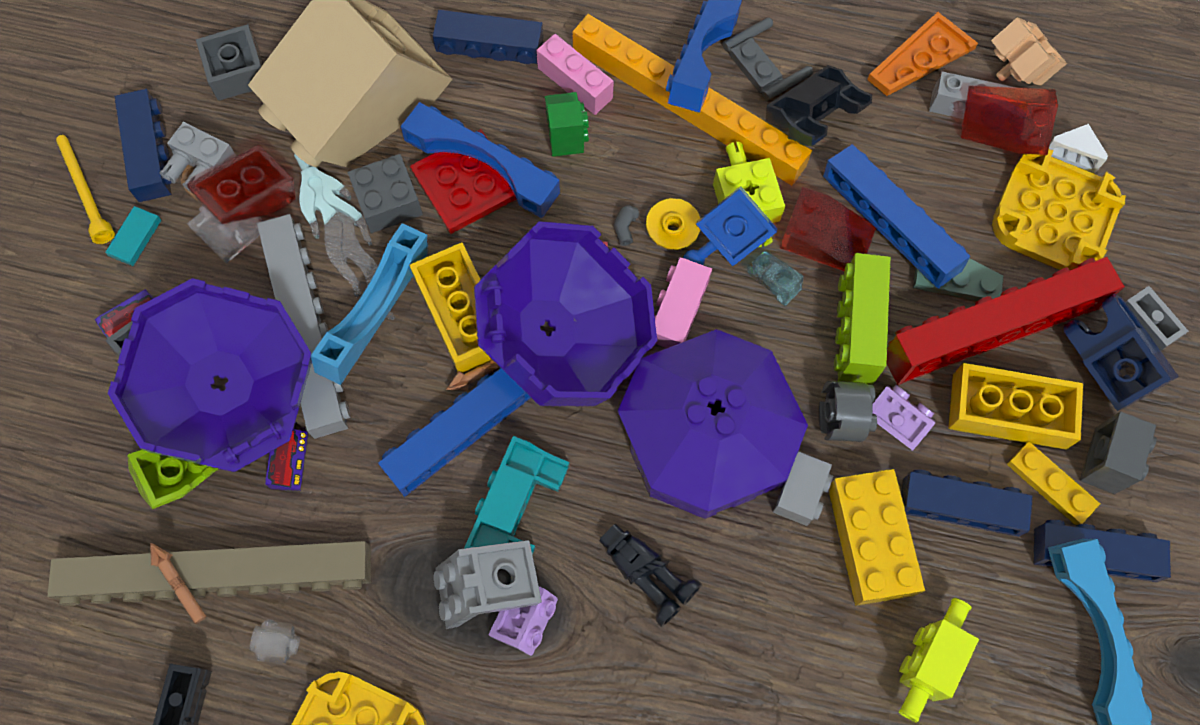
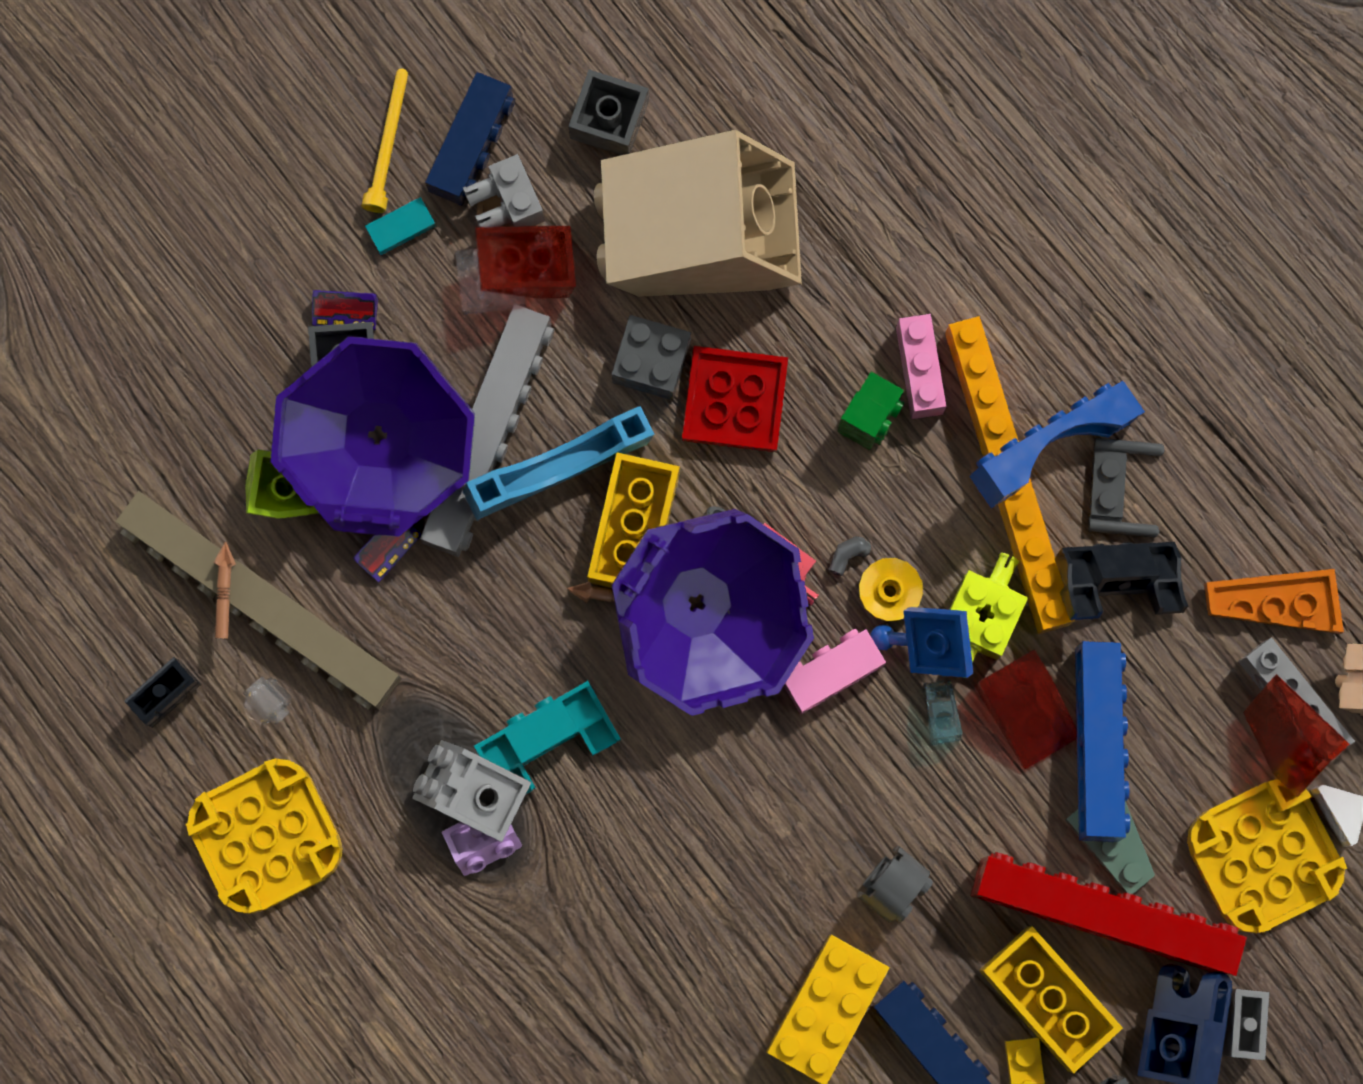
camera: 40 degrees right, 10 degrees up
(339, 218) = (592, 350): piece -> none
(436, 133) = (739, 334): blue arch -> none
(452, 431) = (539, 632): blue brick -> none
(487, 36) = (870, 263): dark blue brick -> none
(639, 561) = (609, 870): black piece -> none
(702, 458) = (753, 844): dark purple windscreen -> none
(803, 489) = (802, 920): light grey brick -> none
(863, 319) = (982, 816): lime brick -> none
(902, 417) = (945, 926): lavender bracket -> none

